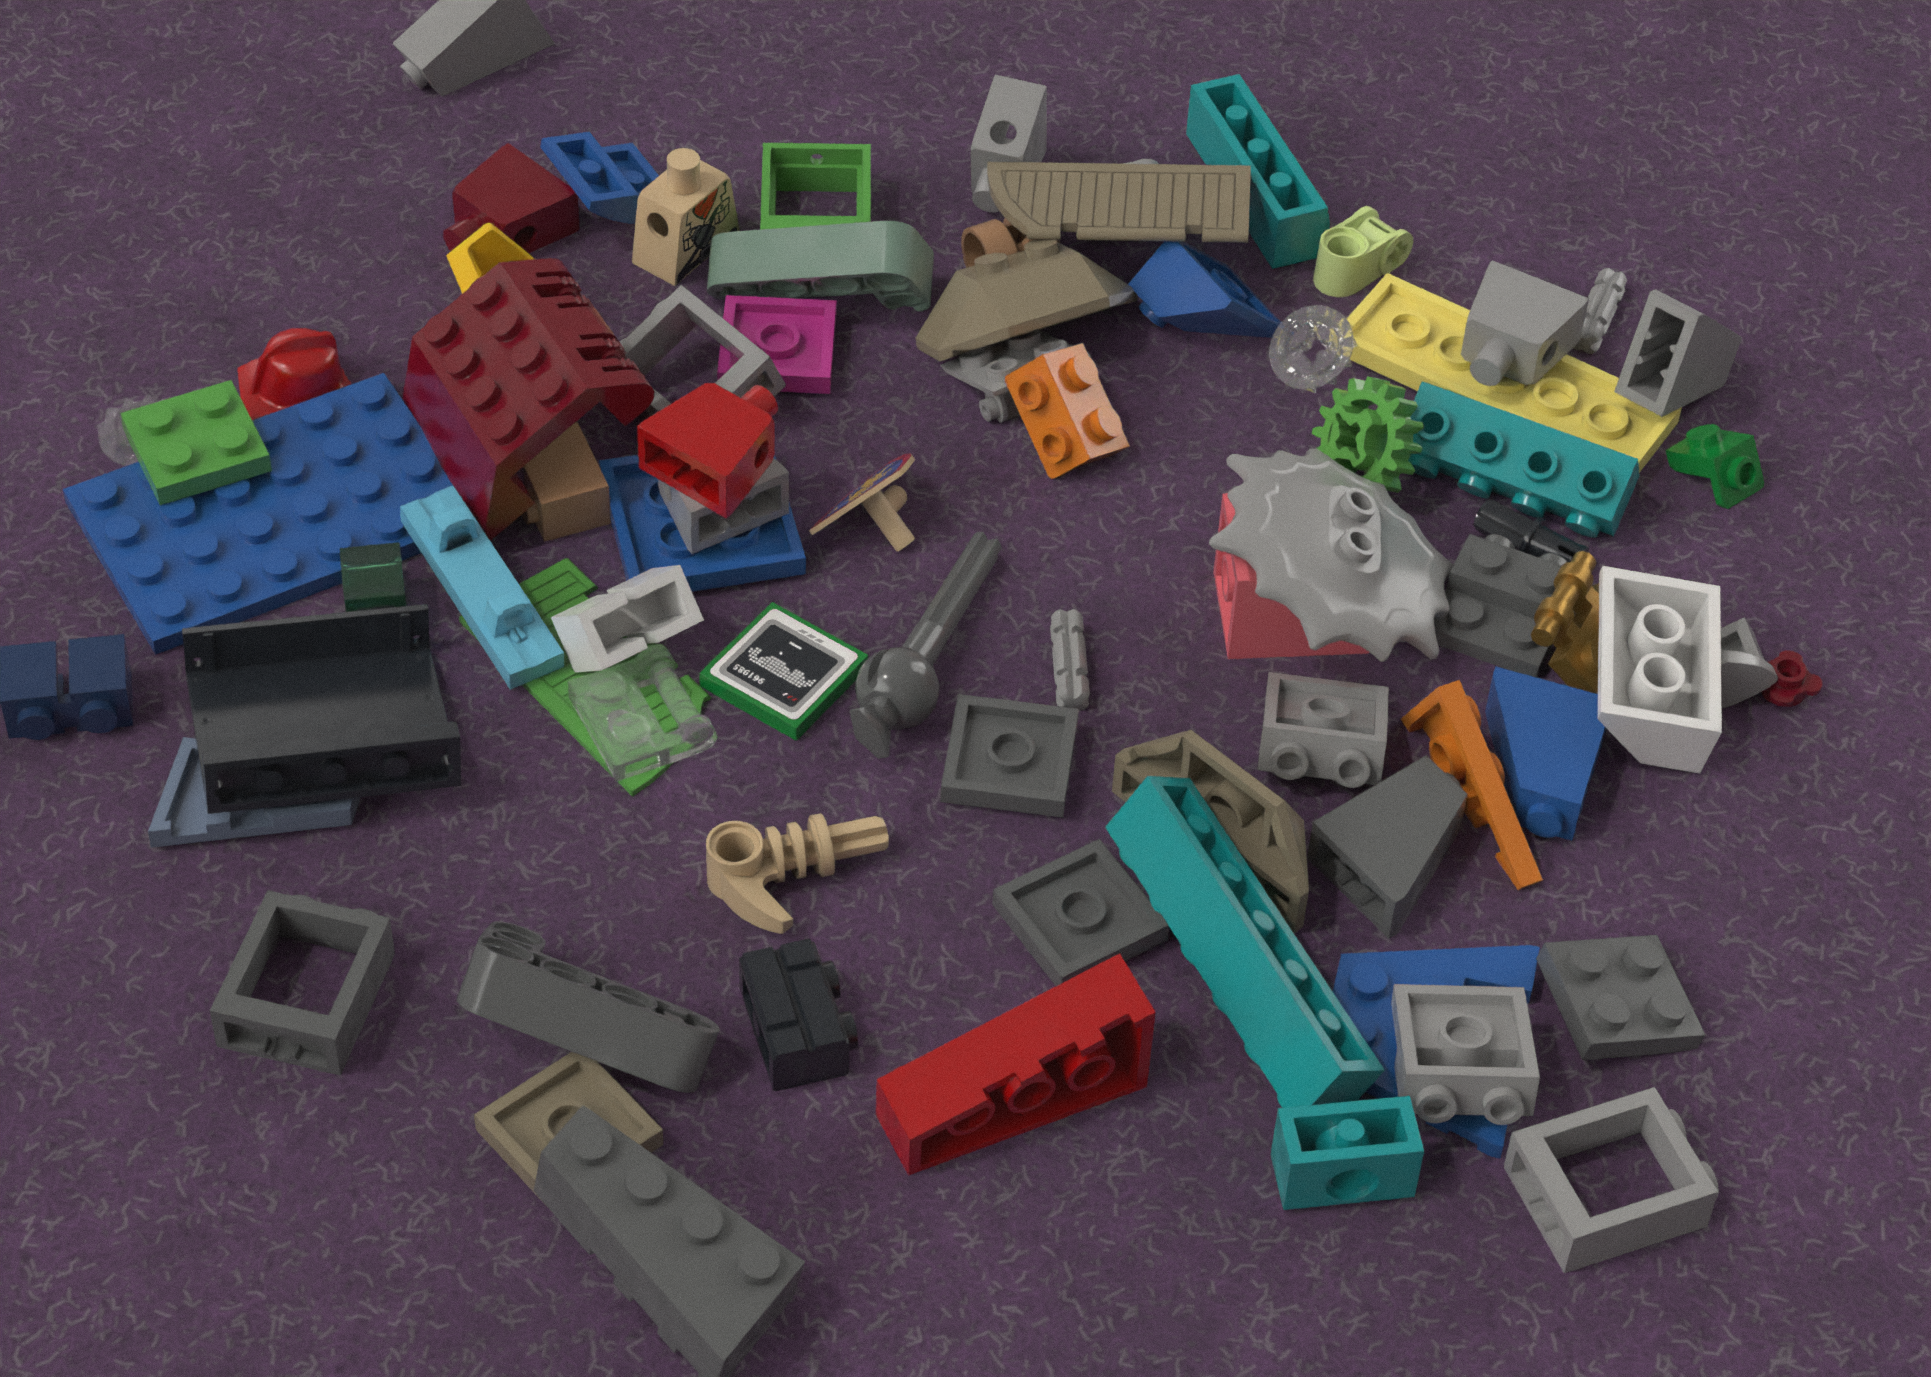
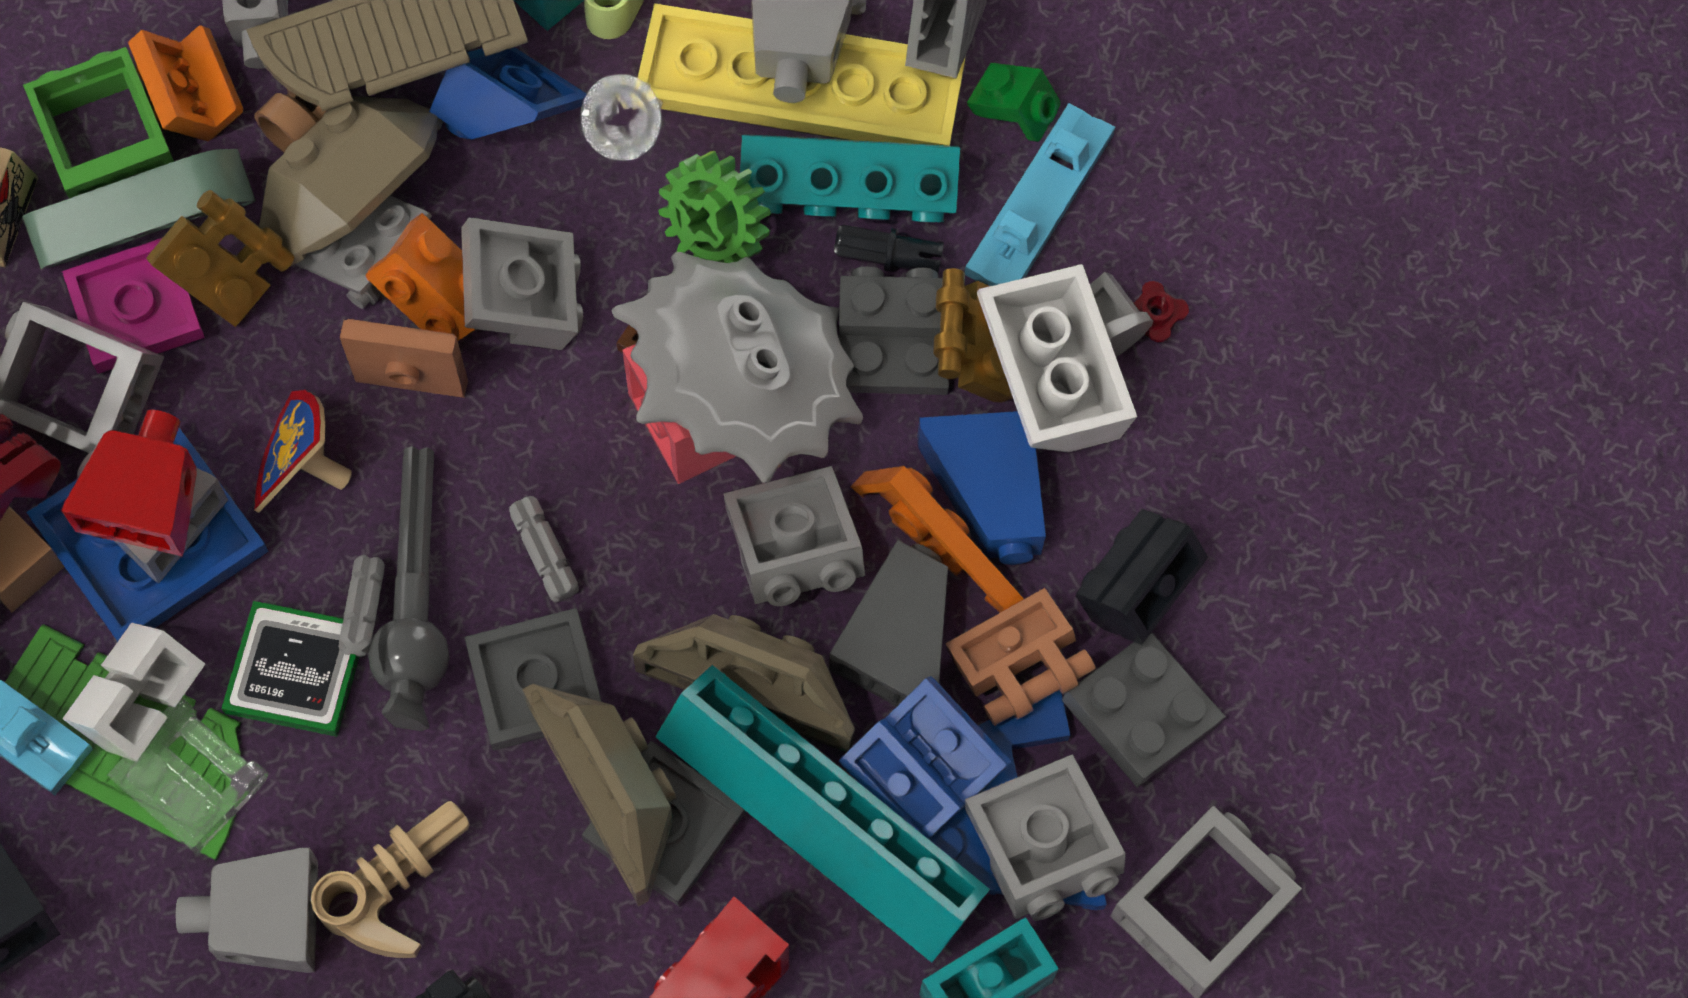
camera: 25 degrees left, 20 degrees up
(652, 838) = (258, 911): none -> light grey torso
(862, 330) = (209, 270): none -> pearl gold plate
(872, 635) = (361, 605): none -> light grey axle
(912, 192) = (187, 82): none -> orange bracket
(1010, 453) = (404, 357): none -> nougat plate
(1043, 840) = (610, 779): none -> dark tan wedge
(1152, 436) = (521, 282): none -> light grey plate
(1370, 938) = (925, 758): none -> blue slope
(1508, 888) = (1013, 642): none -> nougat plate
(1668, 879) = (1141, 576): none -> black brick
(1718, 543) = (1040, 199): none -> medium azure hinge

